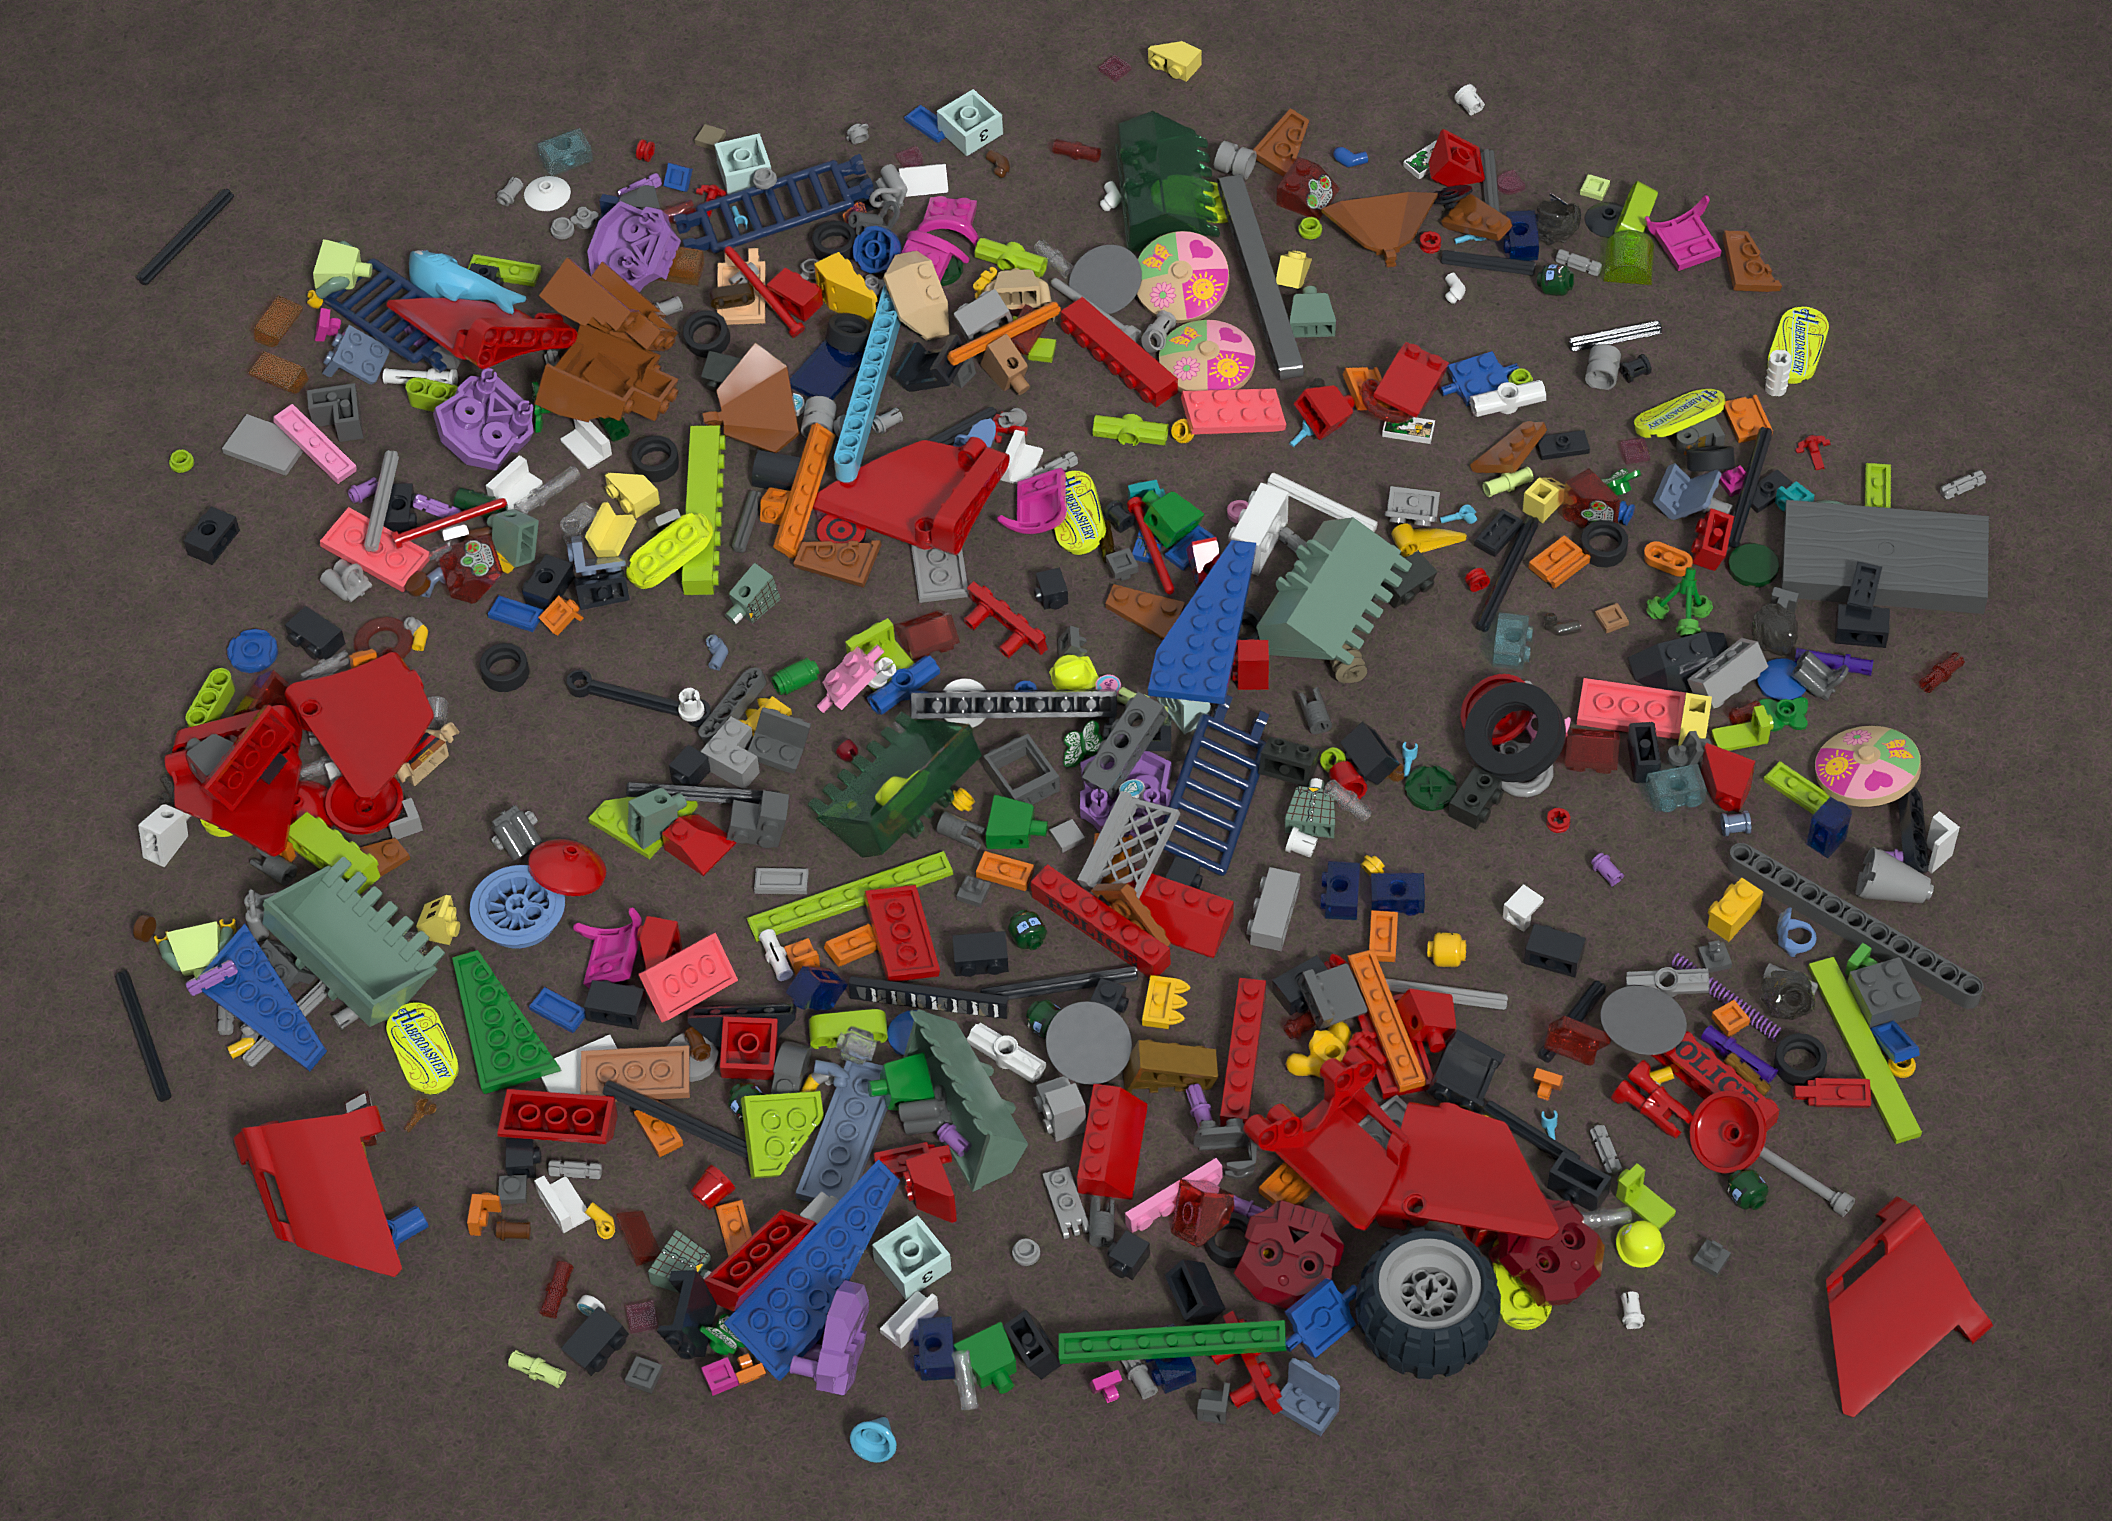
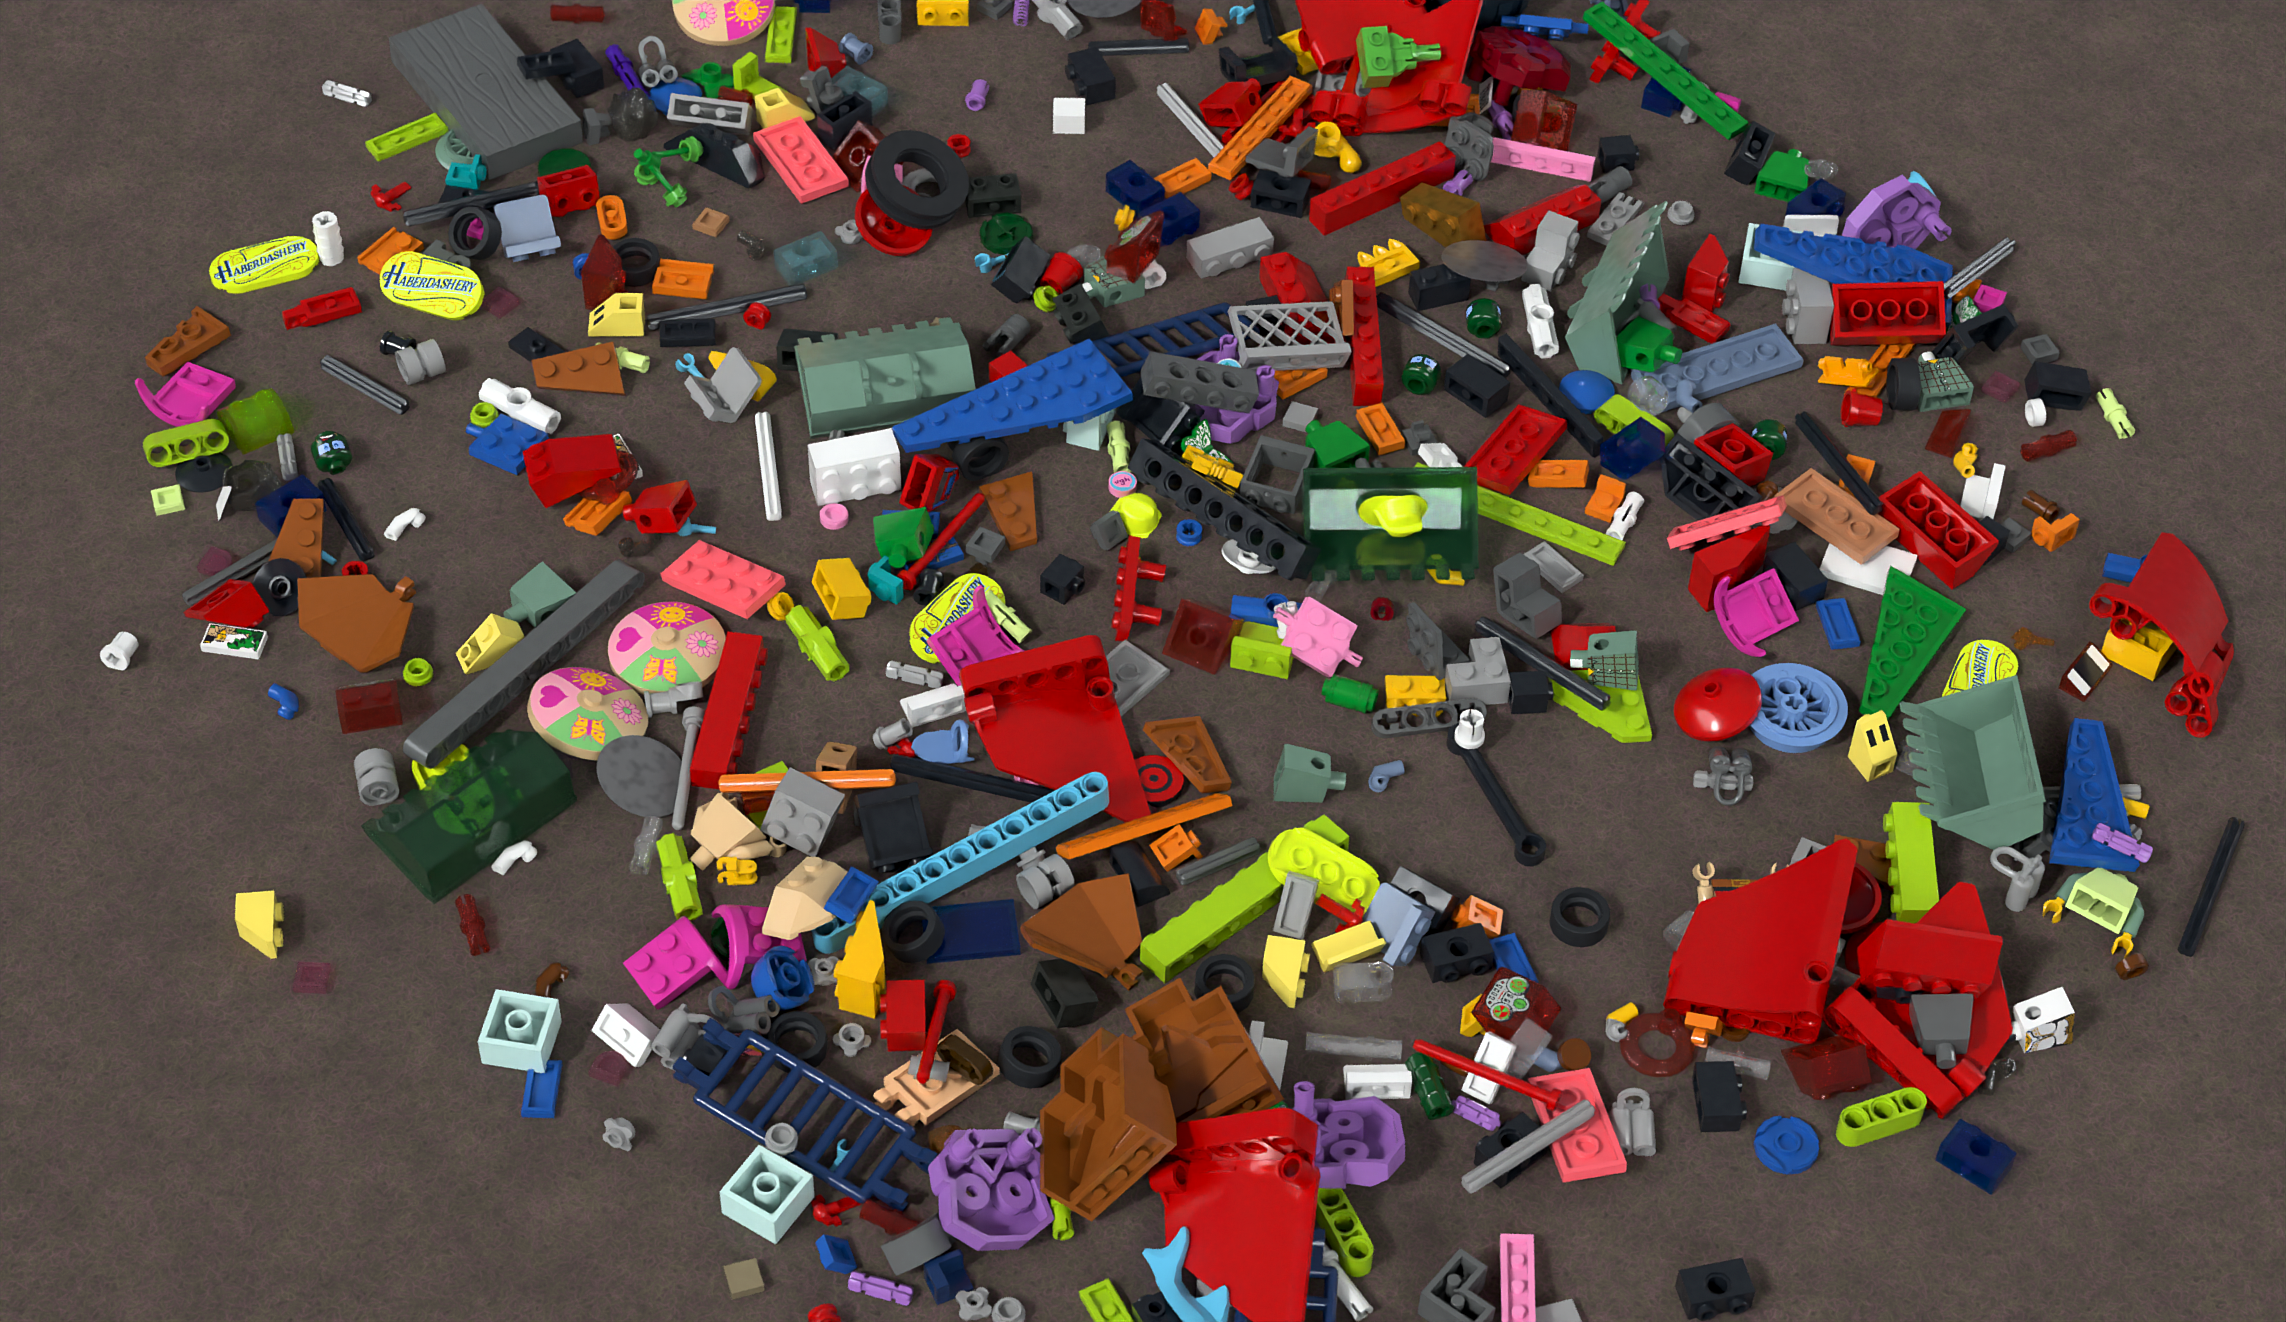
camera: 135 degrees left, 5 degrees down
(134, 728) = (1959, 1151): none -> clear blue brick
(362, 491) = (1518, 1206): medium lavender pin -> none
(514, 536) = (1441, 1009): sand green torso -> none
(627, 548) = (1351, 918): none -> red piece
(700, 1226) = (1903, 383): none -> black tyre
(751, 1209) = (1855, 373): none -> light orange hinge
(751, 1385) = (1978, 267): none -> axle
(778, 1128) = (1765, 404): lime plate -> none
(890, 295) = (851, 895): none -> blue tile
(941, 882) = (1438, 455): none -> white plate
(1049, 534) = (1005, 617): none -> yellowish green pin
(1051, 722) = (1206, 463): none -> yellow piece
(1160, 463) = (841, 588): none -> yellow brick
(1195, 1292) = (1604, 99): black brick -> none
(1282, 143) = (316, 763): dark orange wing -> none
(1308, 813) = (1135, 247): none -> clear red slope
(1358, 1125) = (1388, 55): none -> bright green brick
(1447, 949) = (1156, 133): yellow head -> none
(1620, 480) = (554, 284): green animal -> none
(1714, 350) = (322, 309): none -> red hinge

